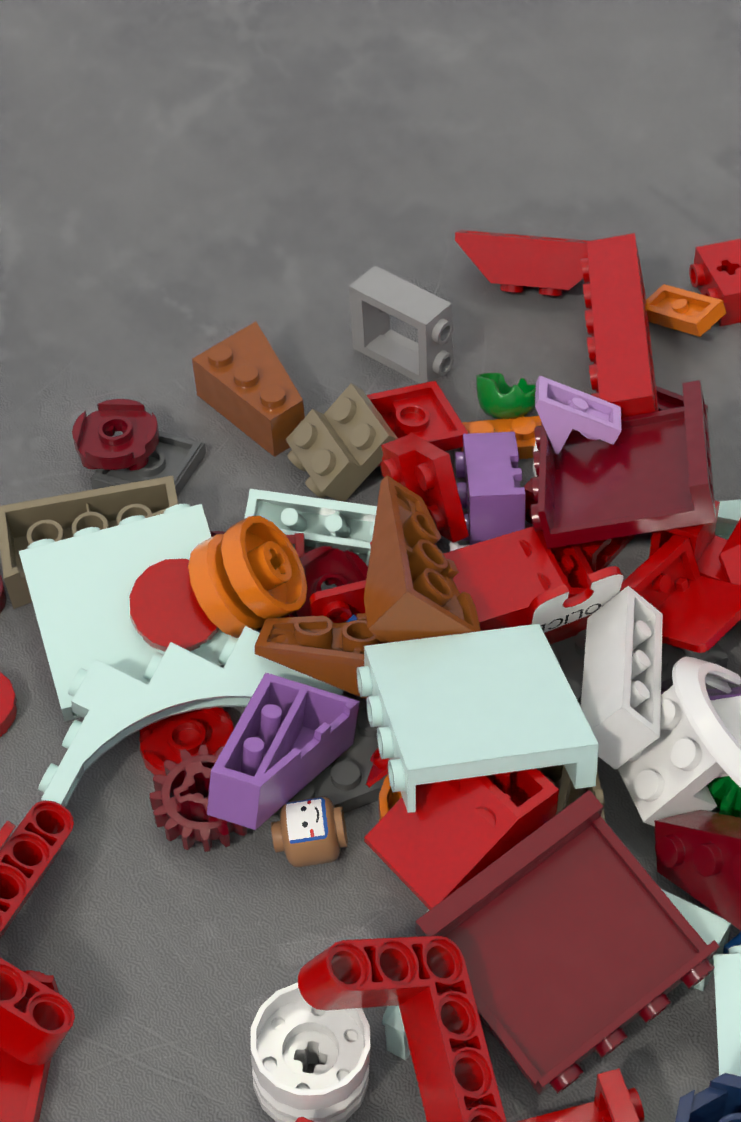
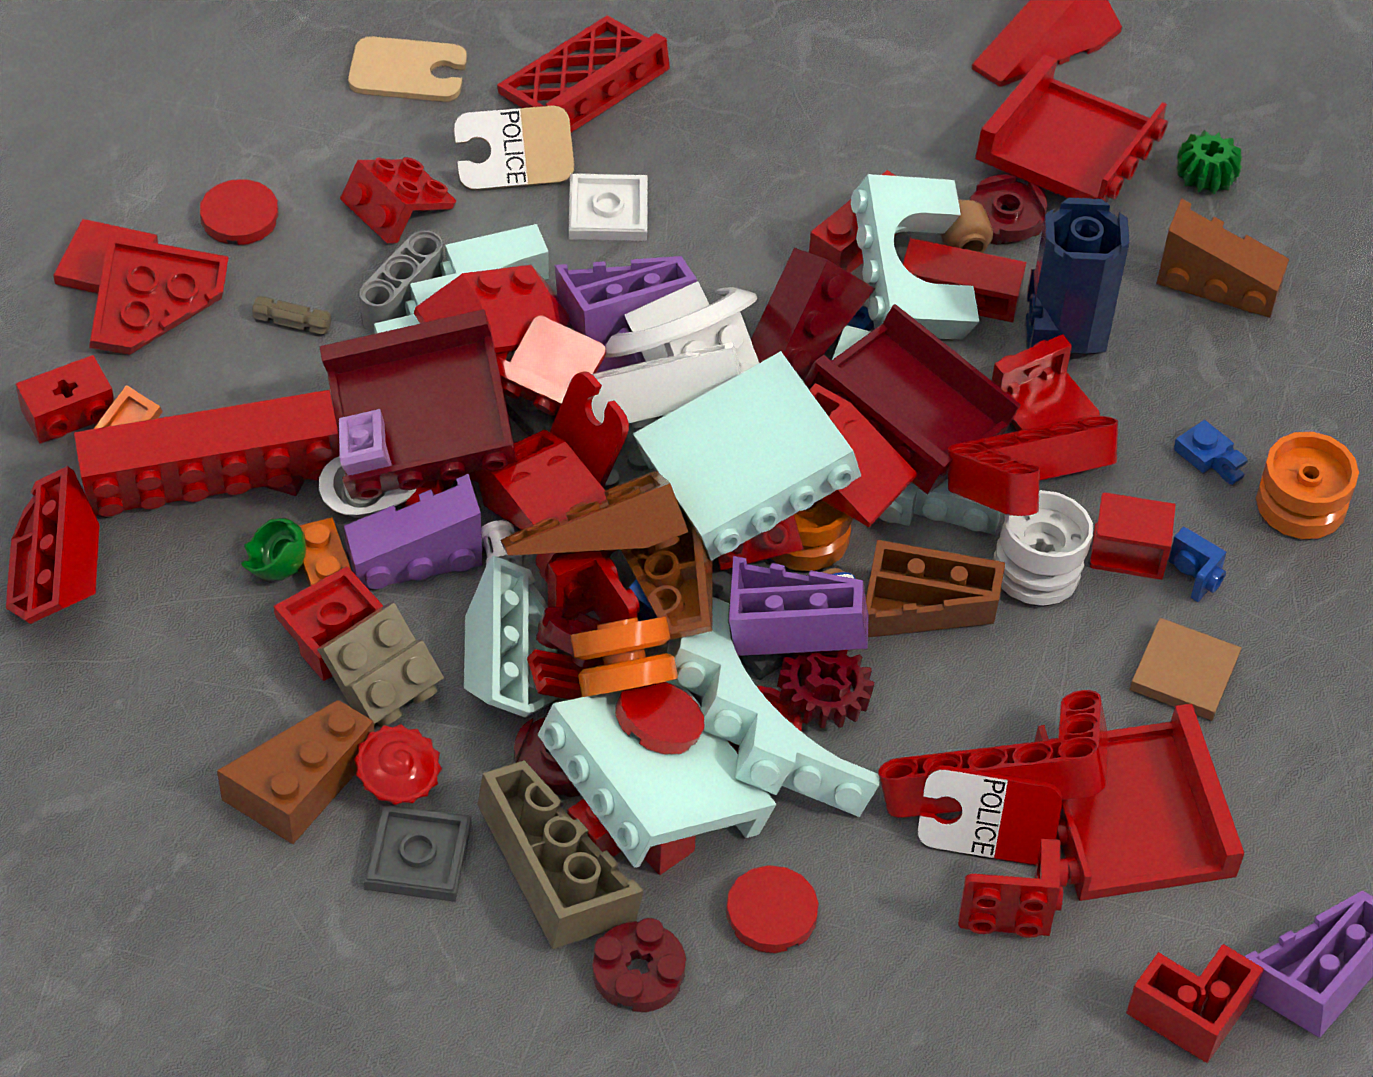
camera: 110 degrees left, 5 degrees up
(130, 450) = (405, 894): dark red plate -> none
(230, 446) = (397, 764): none -> red piece
(294, 912) = (930, 590): none -> dark orange wedge
(383, 294) = (197, 645): light grey window -> none
(430, 475) = (443, 571): red plate -> none

